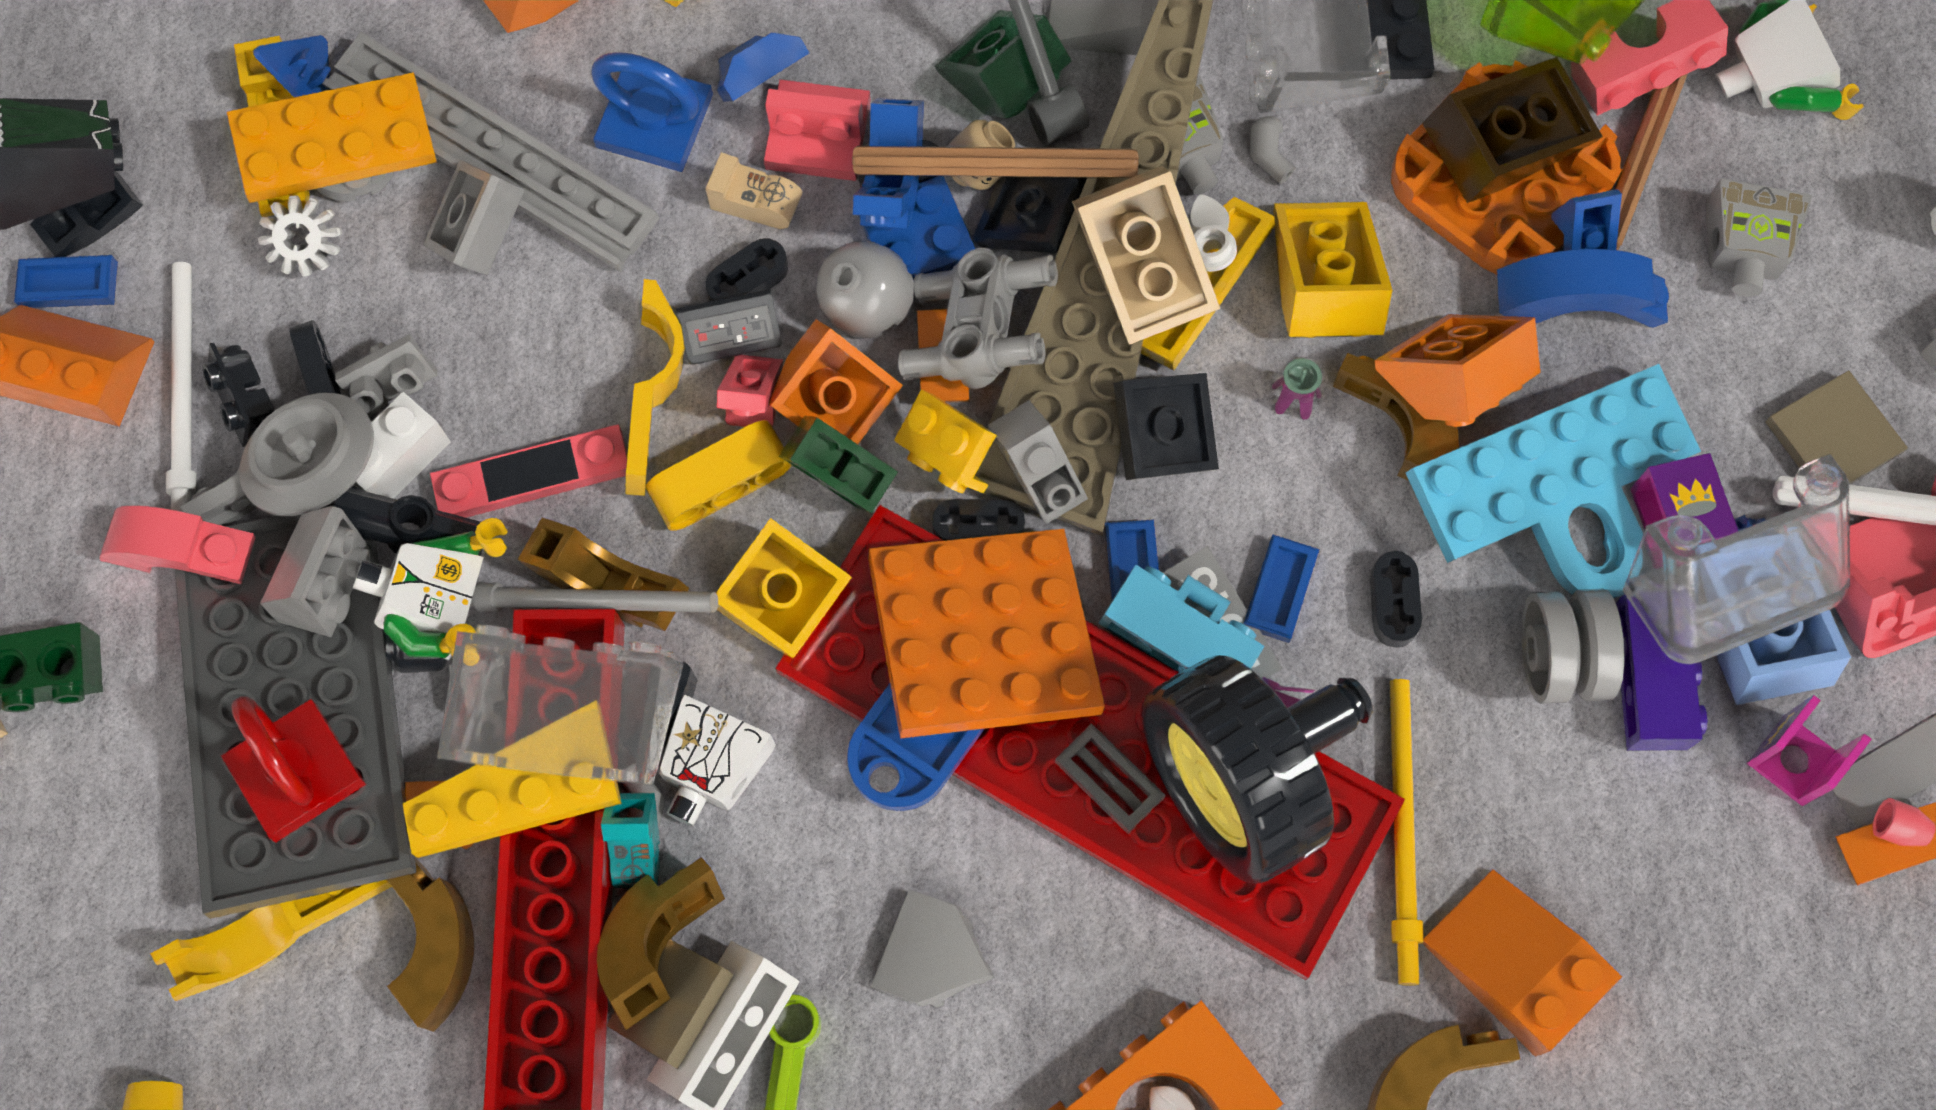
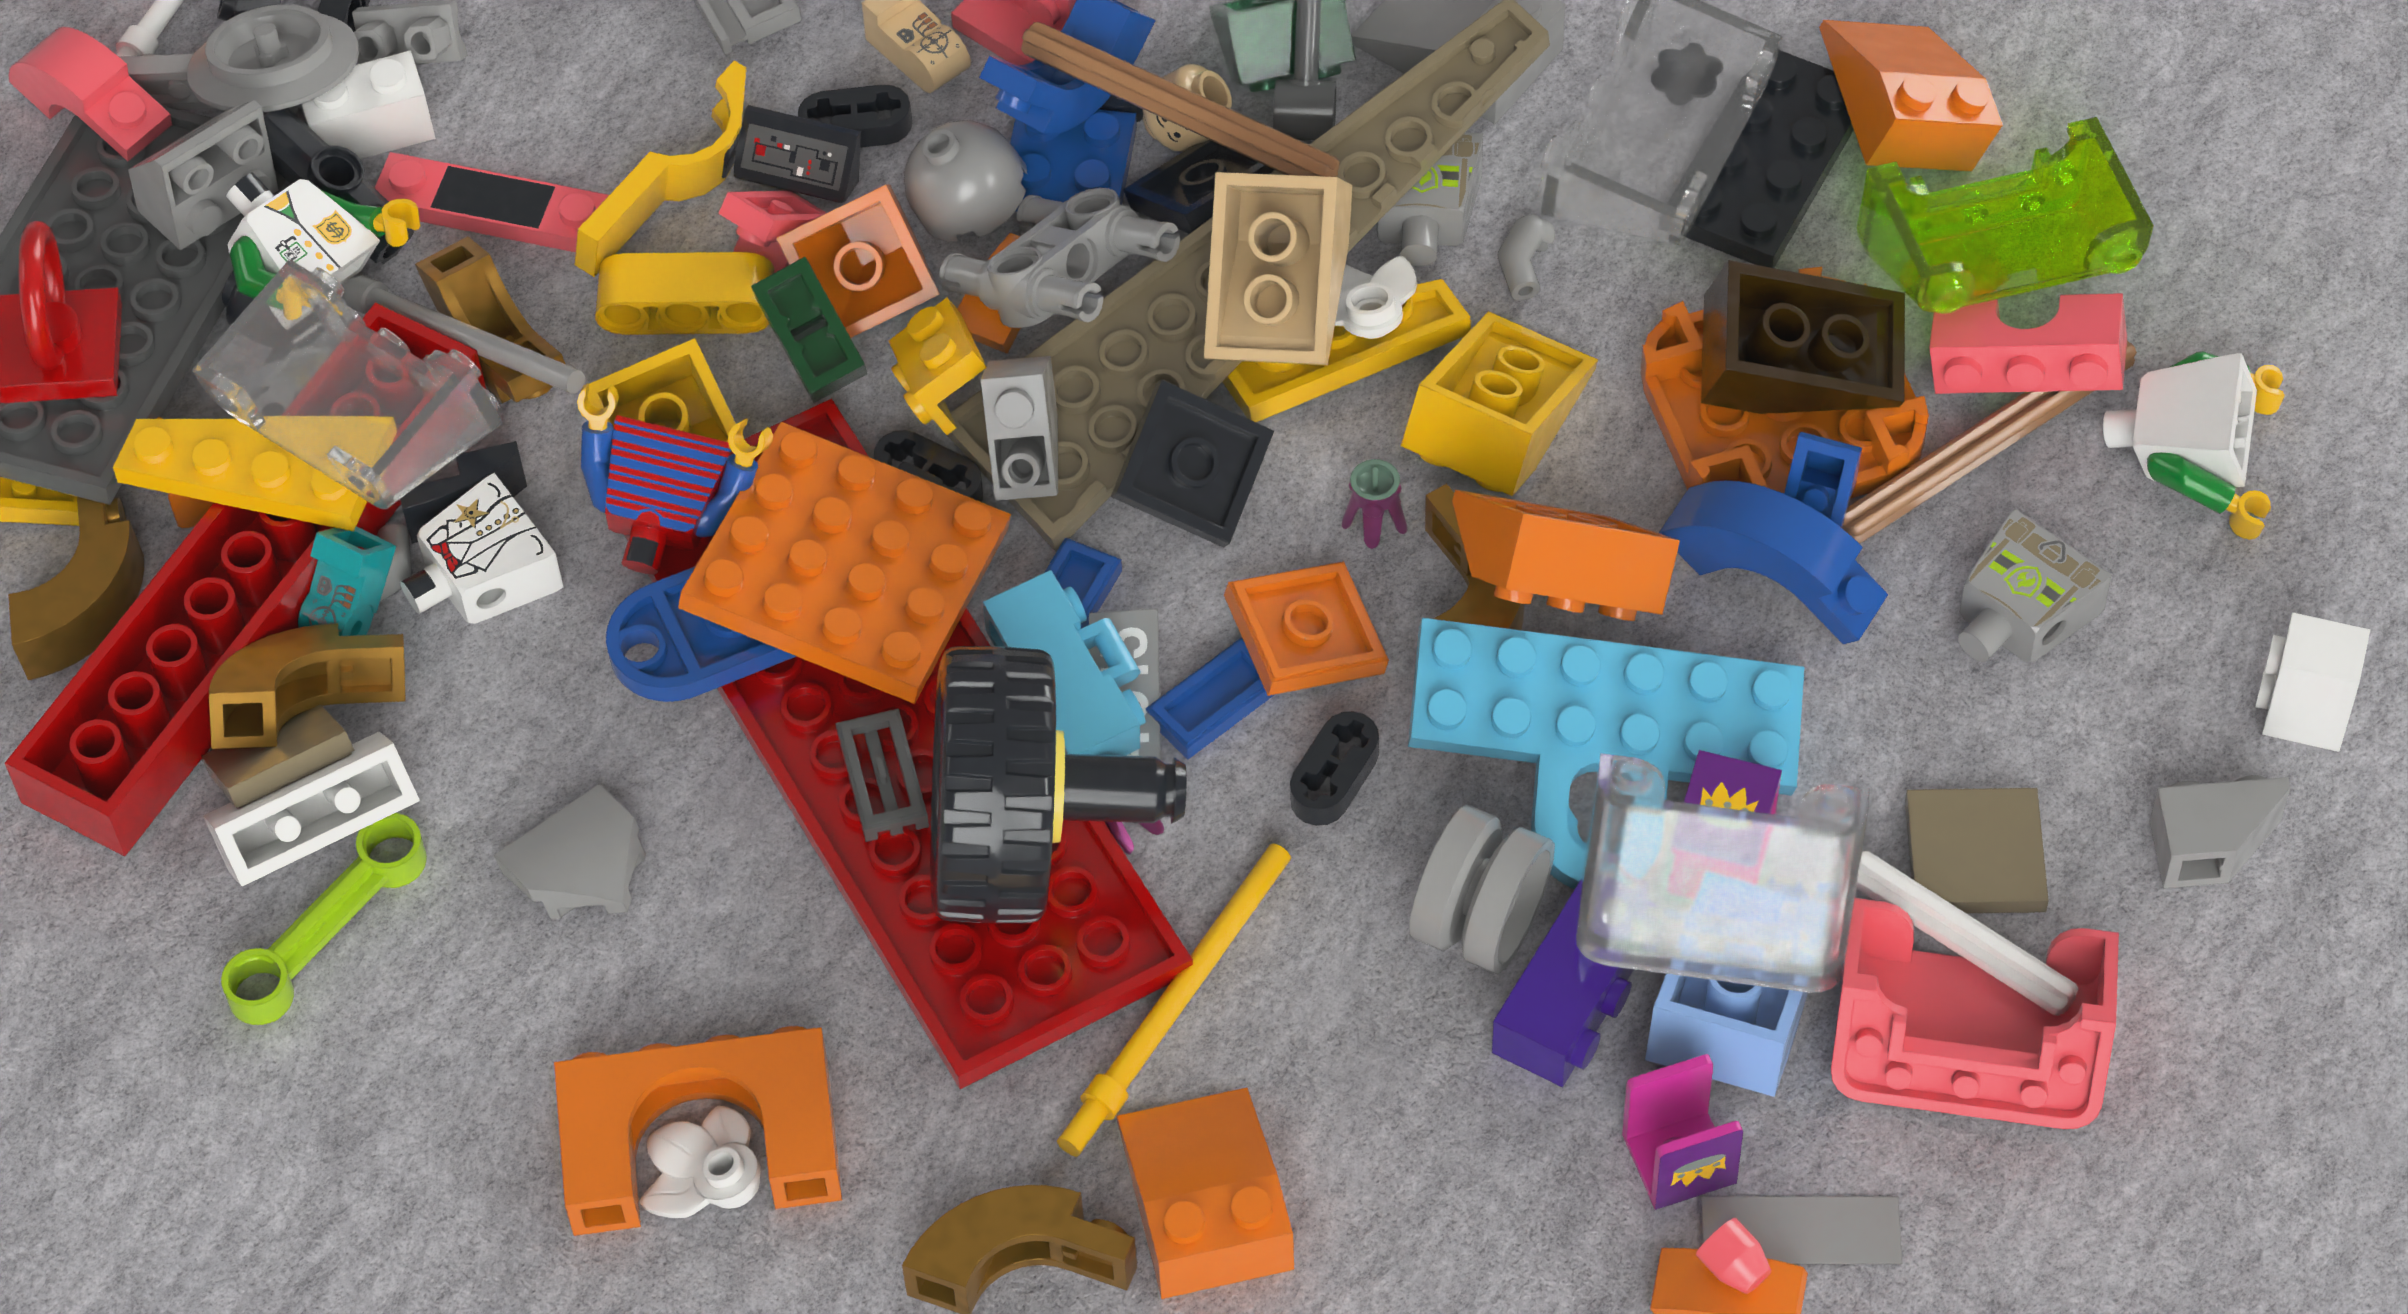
camera: 30 degrees right, 15 degrees down
(821, 642) = (660, 480): none -> torso
(1311, 506) = (1306, 628): none -> orange tile

